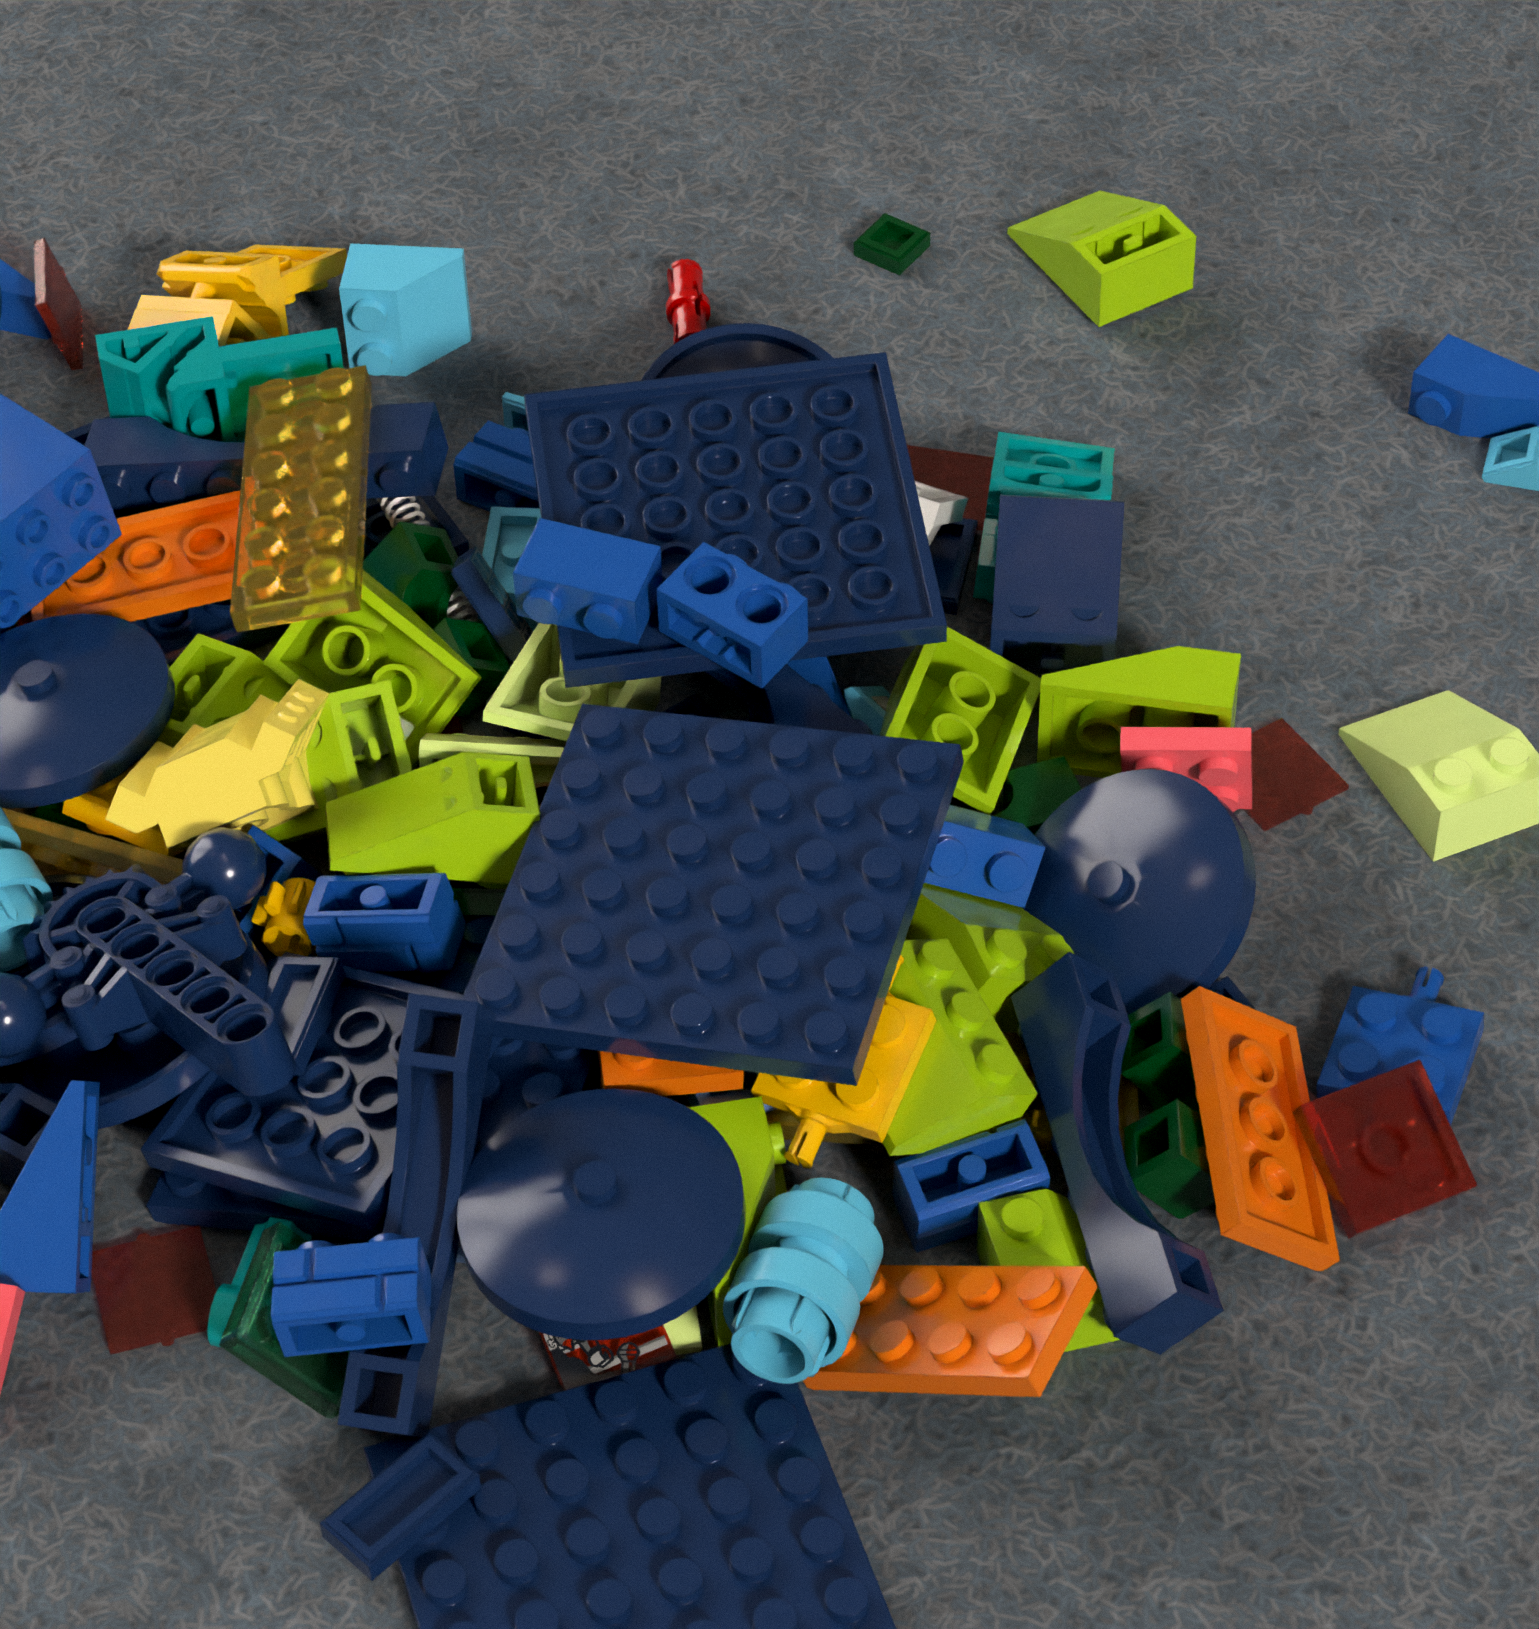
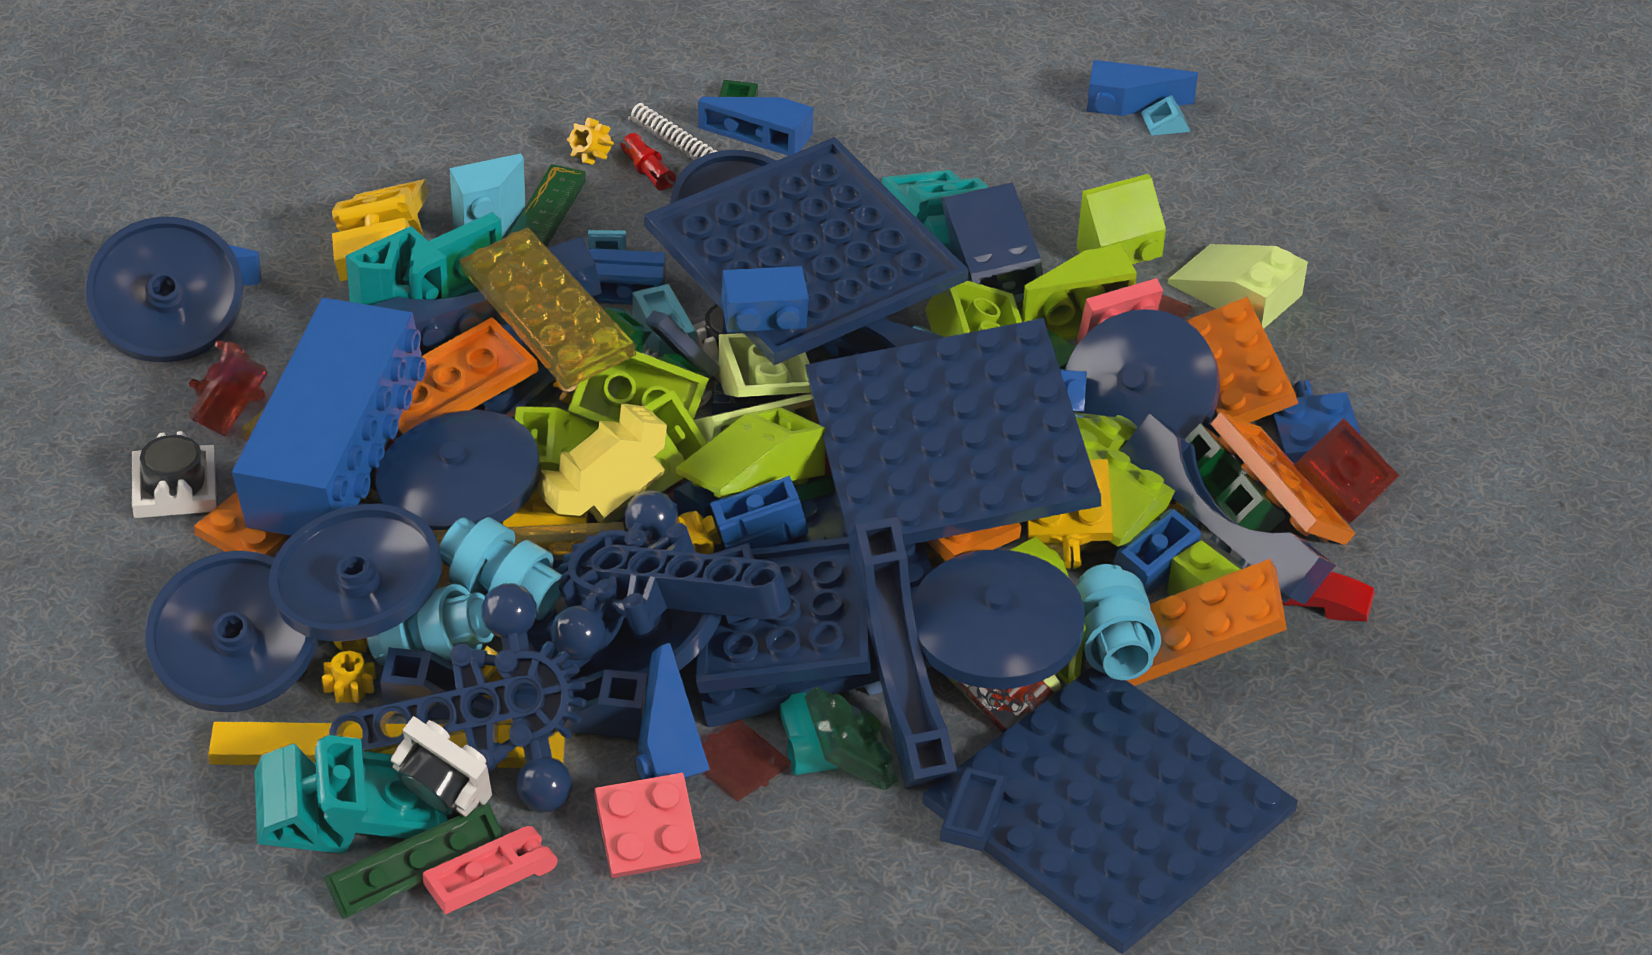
camera: 30 degrees left, 5 degrees down
(58, 304) = (268, 257): clear red piece -> none
(351, 1295) = (896, 703): blue brick -> none
(489, 346) = (551, 202): none -> dark green tile
(620, 255) = (590, 141): none -> yellow gear
(733, 614) = (857, 294): blue brick -> none
(765, 276) = (684, 151): none -> white piece
(888, 293) = (759, 121): none -> blue slope
(1111, 253) = (871, 66): lime slope -> none
(1237, 1362) = (1341, 598): none -> red slope
(1303, 616) = (1123, 215): none -> lime slope
(1336, 907) = (1249, 369): none -> orange plate

